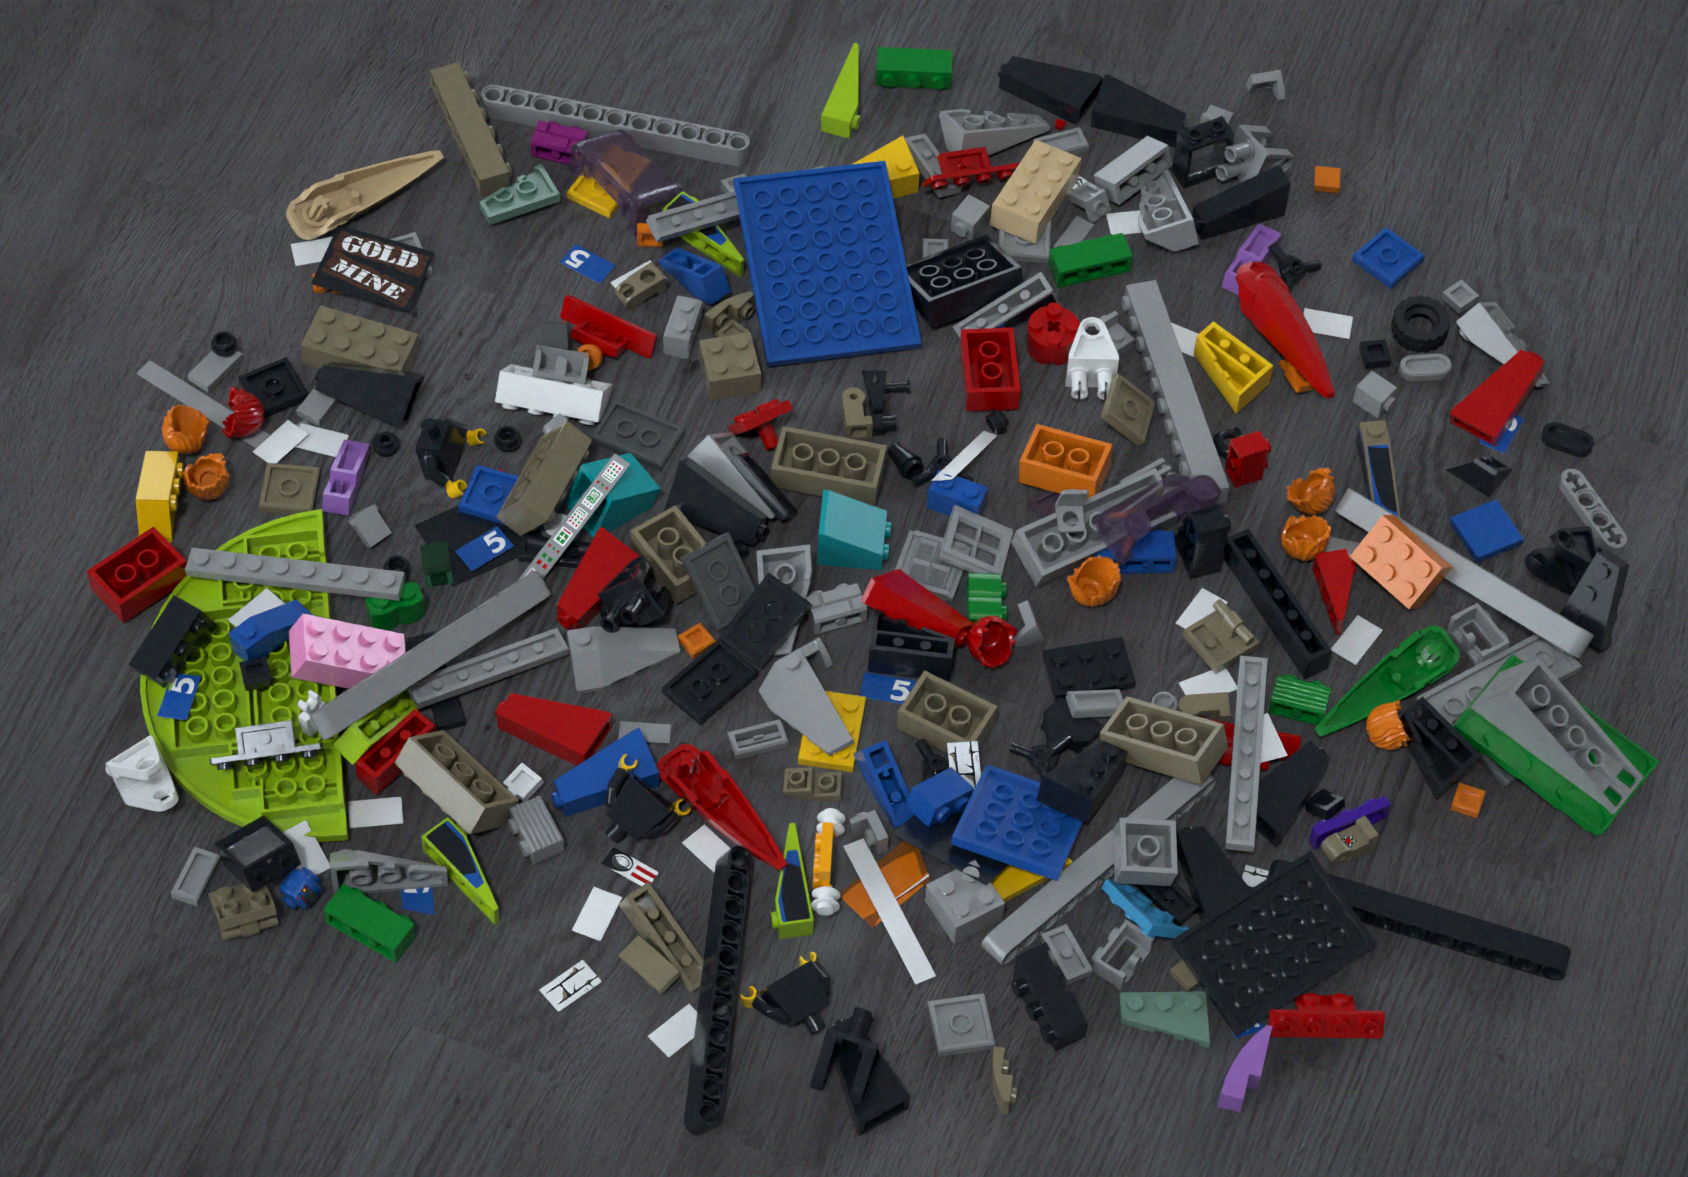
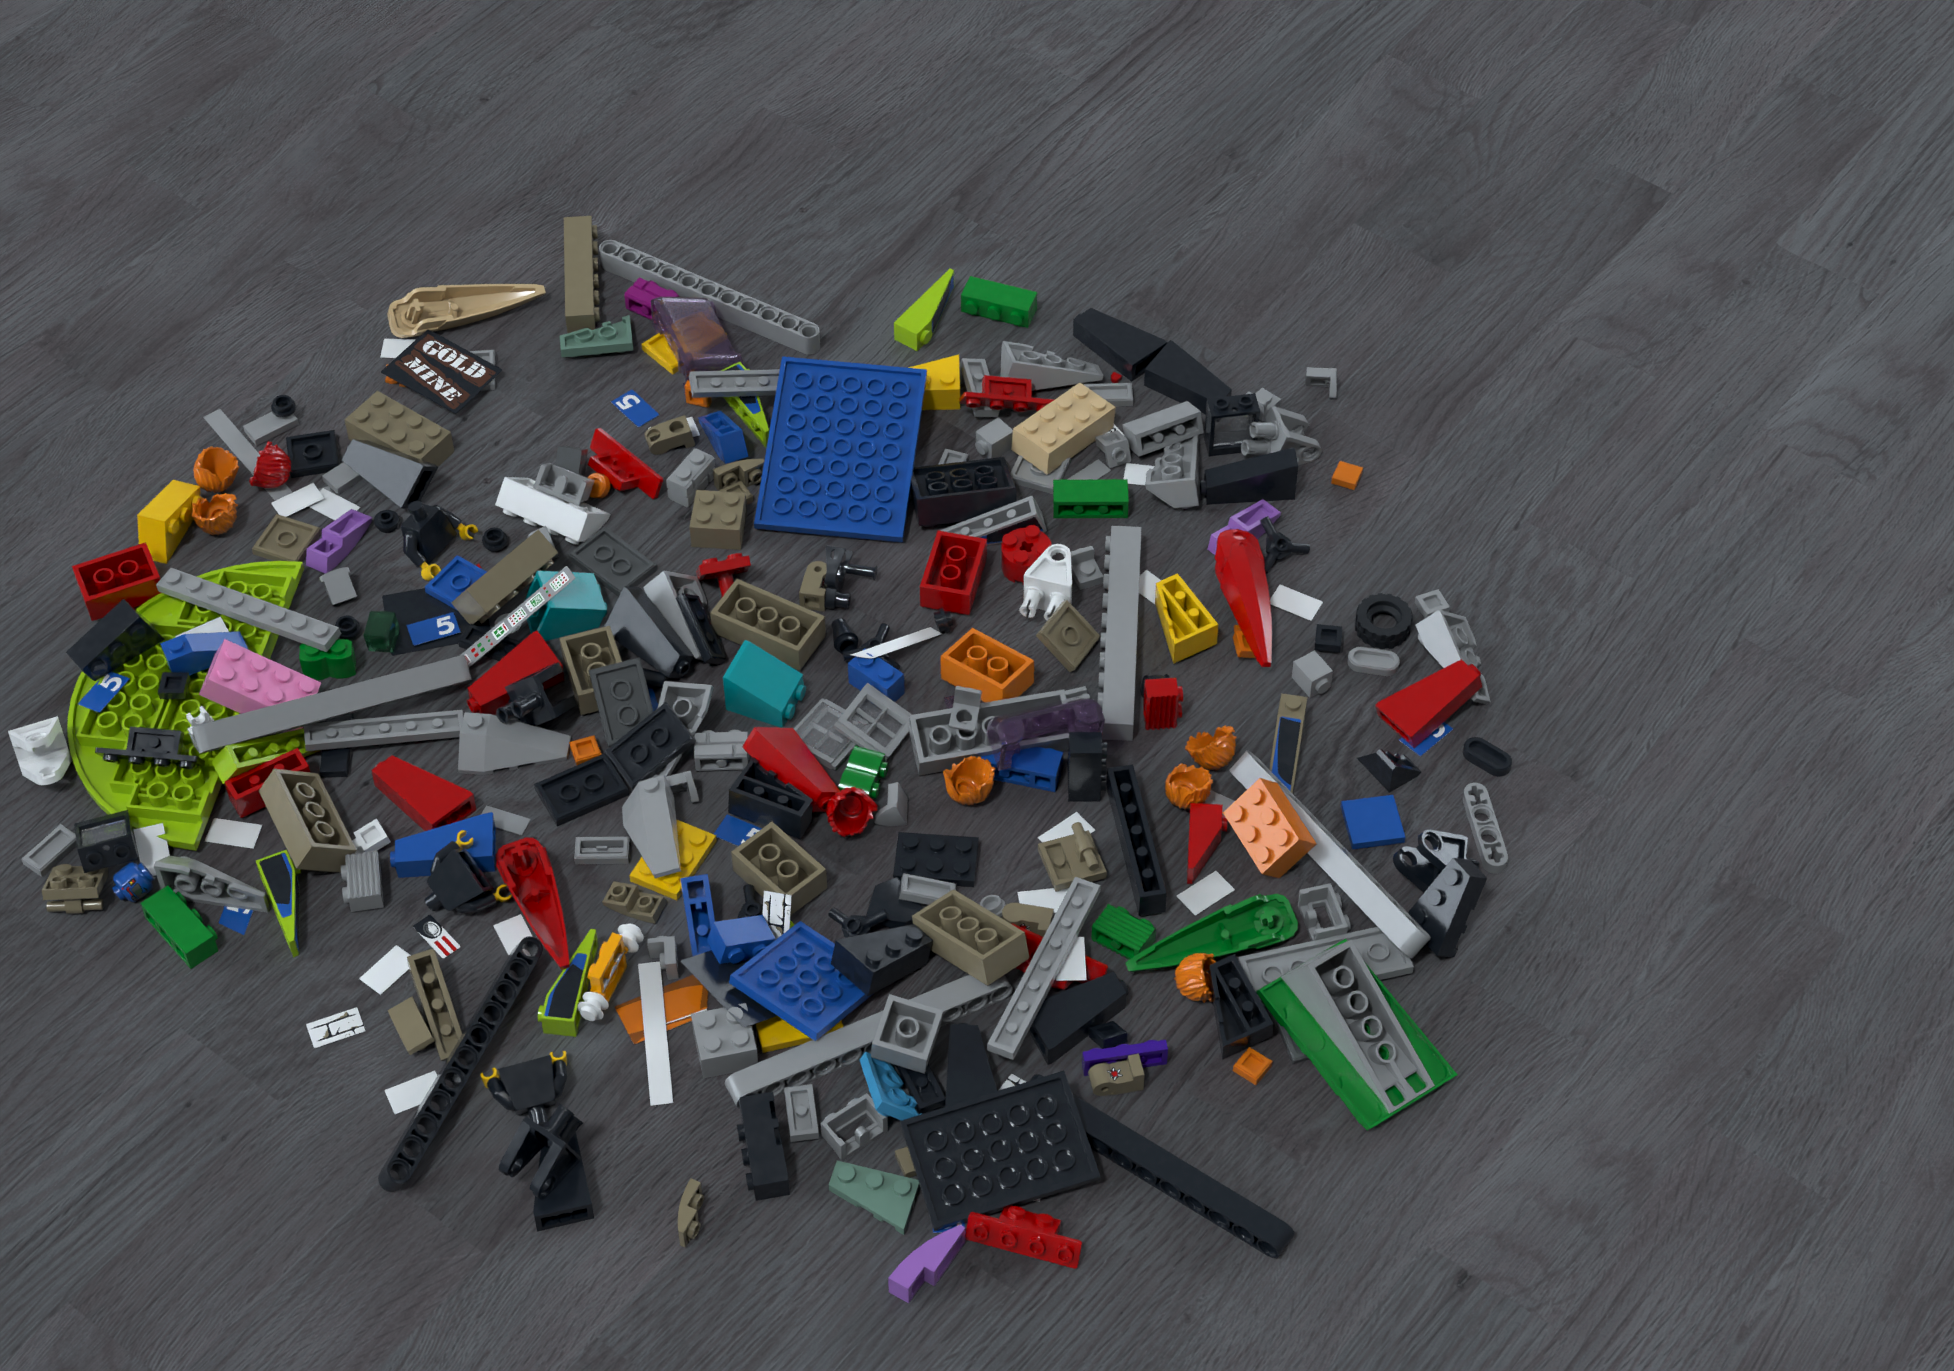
camera: 20 degrees right, 5 degrees down
(960, 1025) = (675, 1153): light grey tile -> none
(1388, 257) = (1378, 556): blue tile -> none

